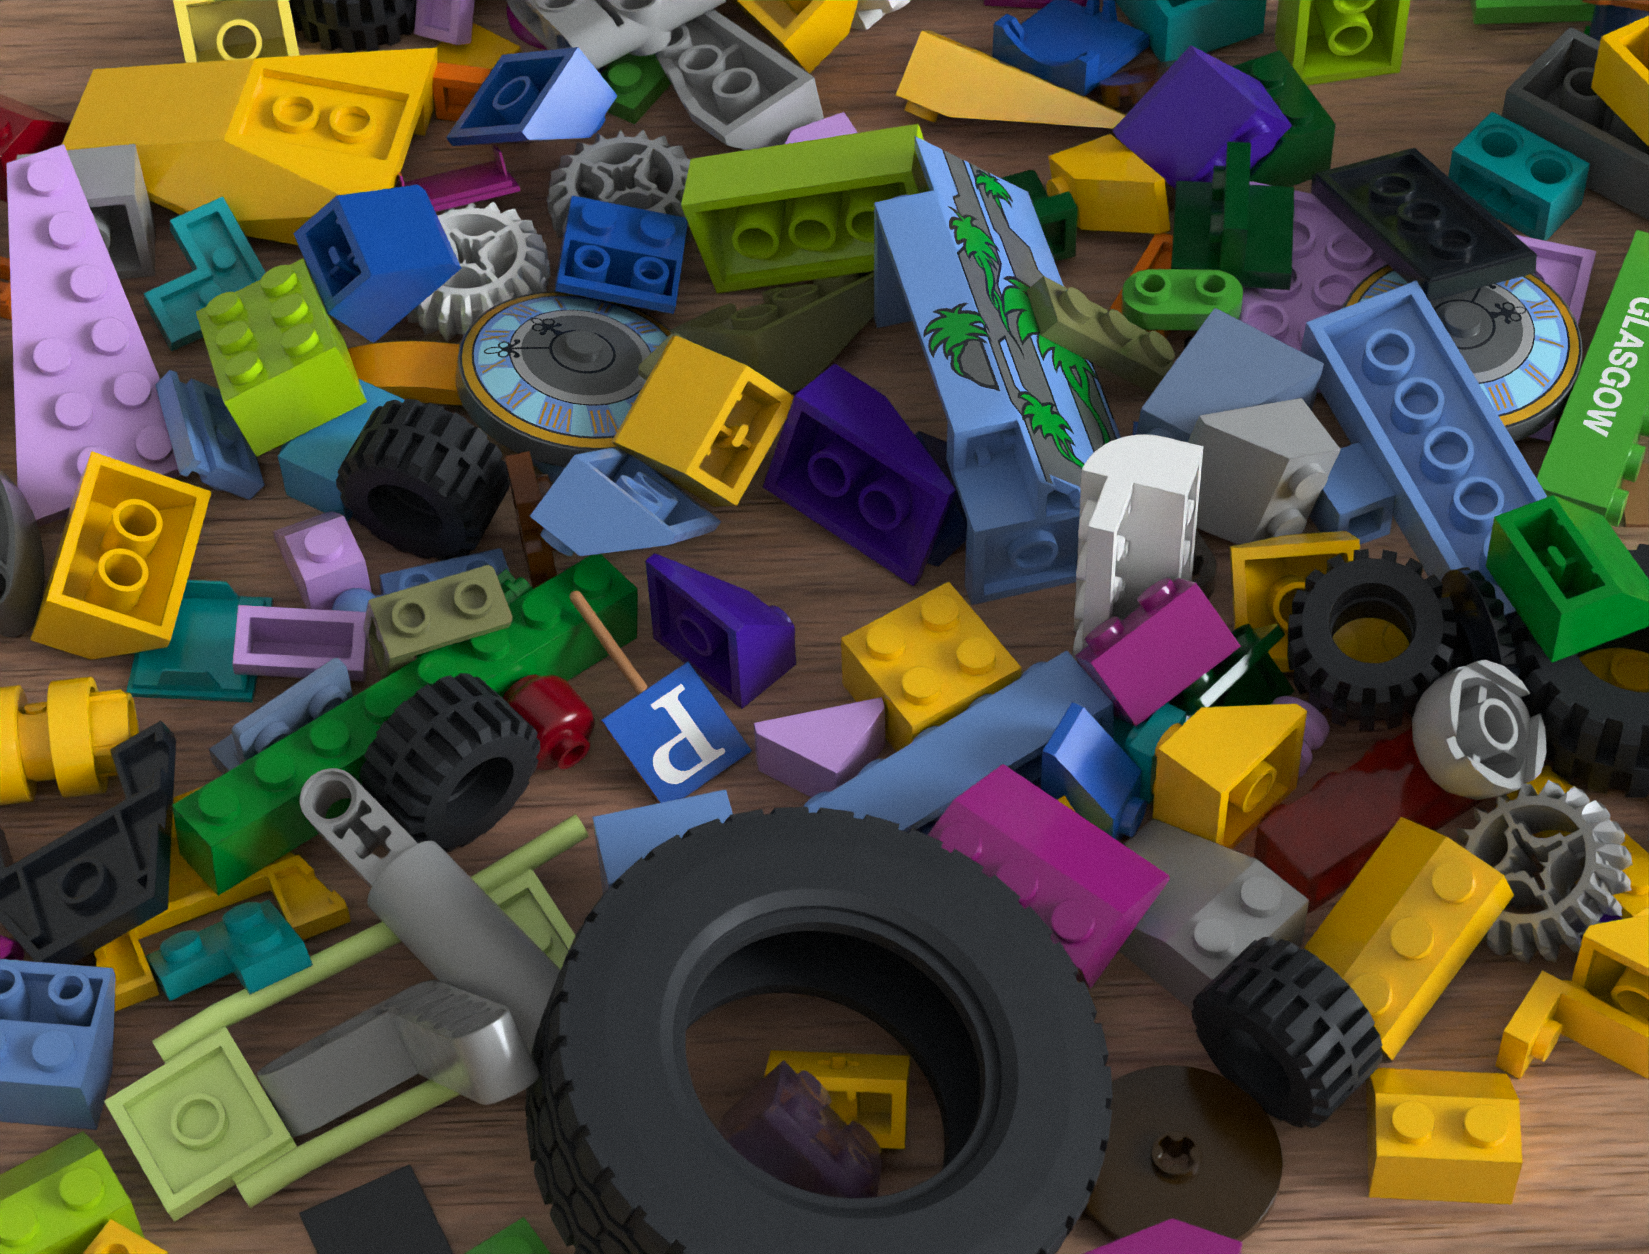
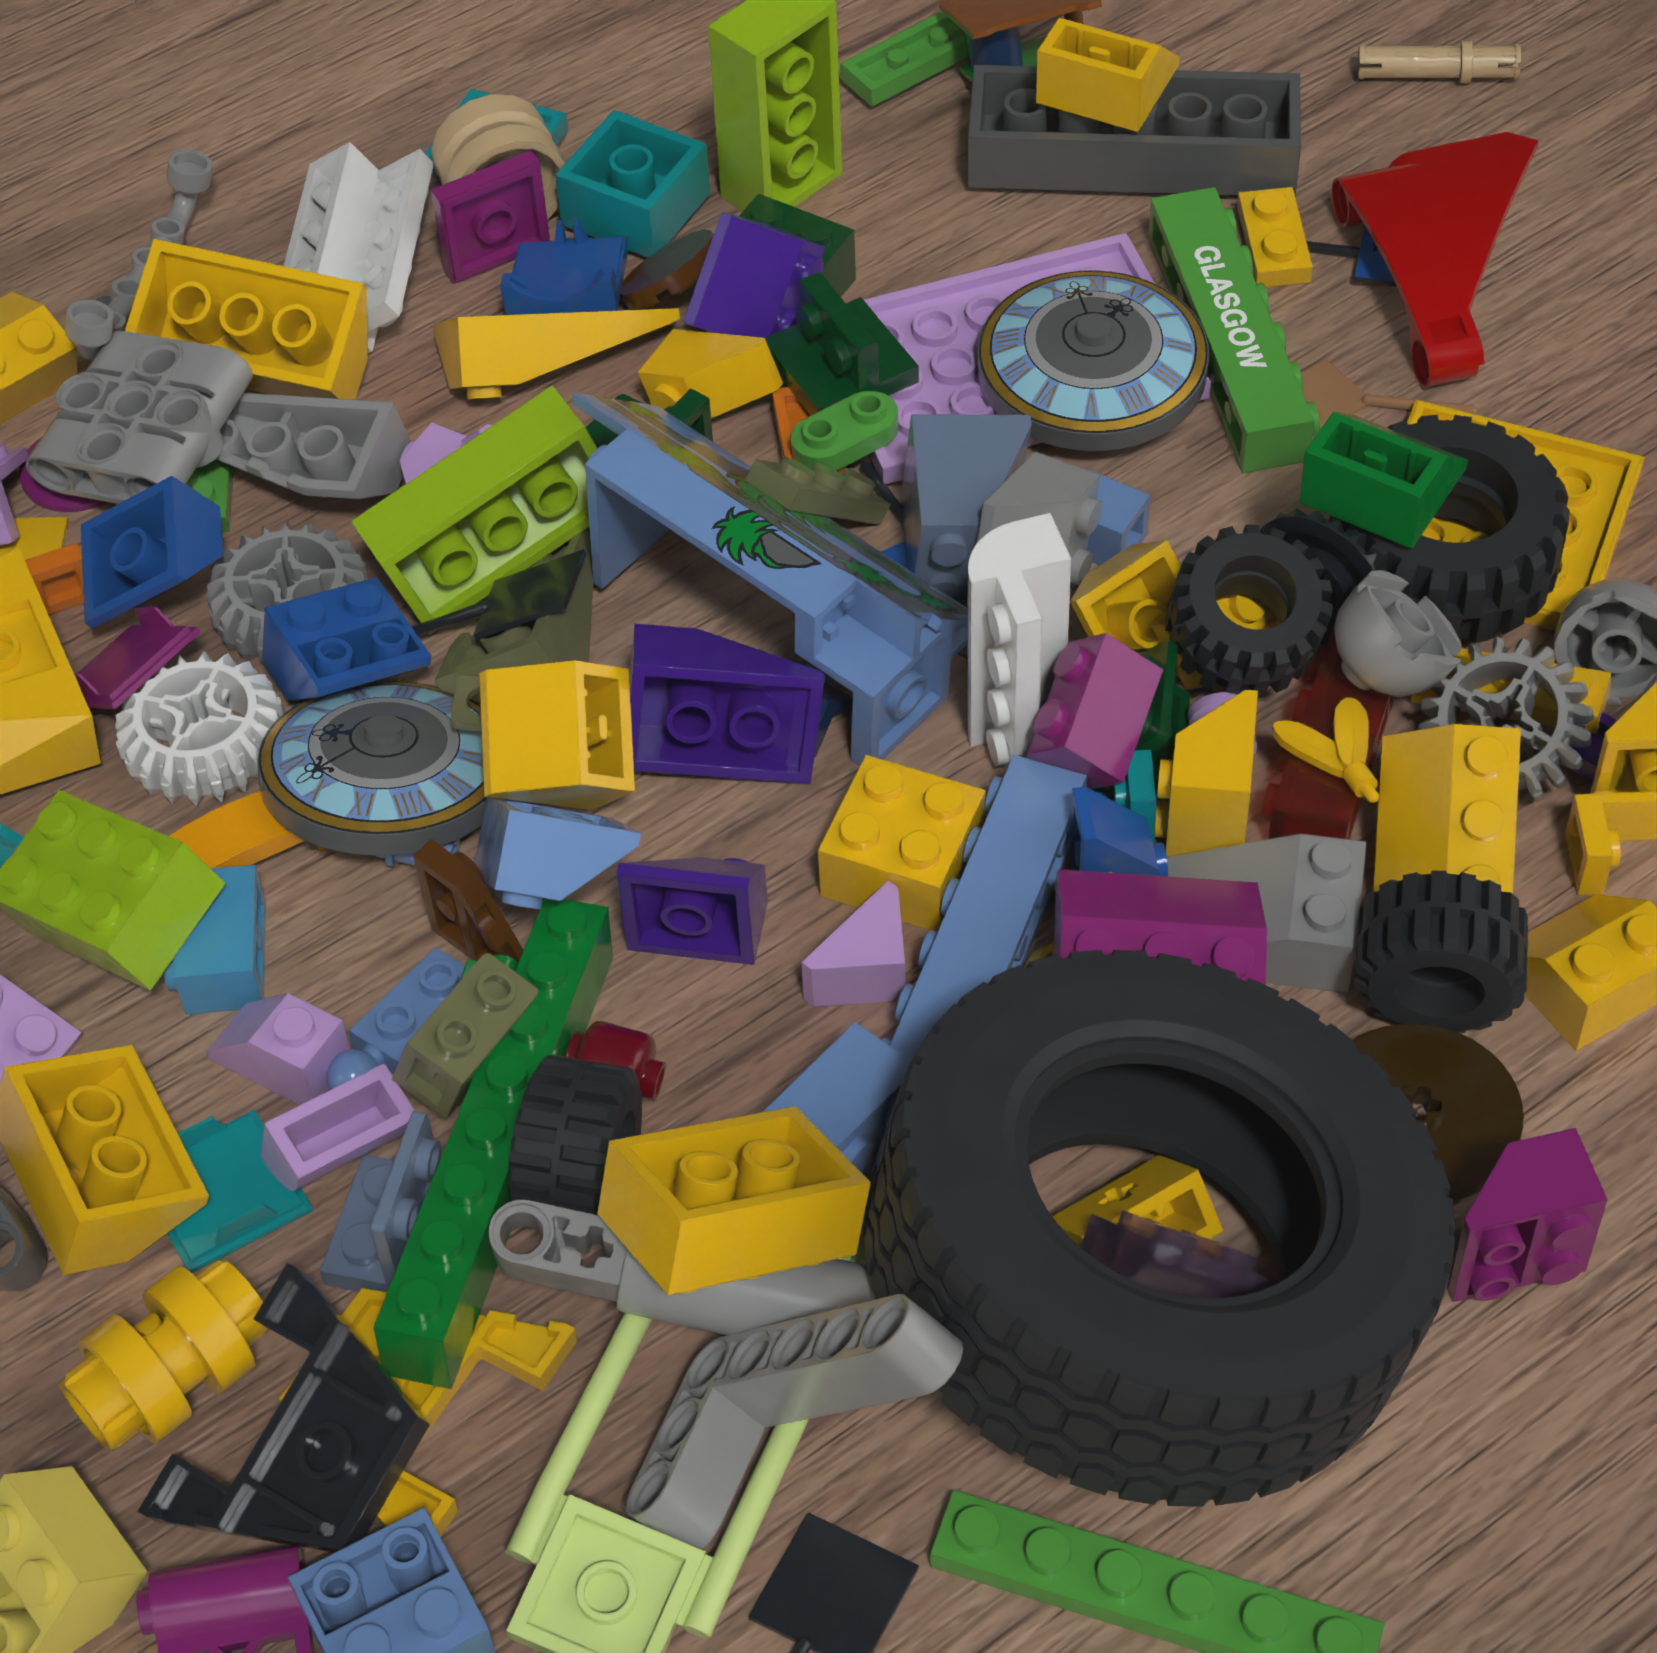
camera: 35 degrees left, 0 degrees up
(207, 437) = (82, 998): medium blue plate -> none
(248, 941) = (507, 1413): teal plate -> none
(376, 256) = (128, 750): blue slope -> none
(423, 479) = (336, 921): black tyre -> none
(488, 865) = (732, 1199): none -> yellow brick
(671, 730) = (718, 1011): blue piece -> none
(788, 299) = (518, 598): none -> black piece
(1356, 815) = (1343, 755): none -> yellow piece
(1423, 224) = (994, 272): black plate -> none
(1424, 424) = (1147, 432): medium blue arch -> none
(1519, 176) = (1015, 206): teal brick -> none

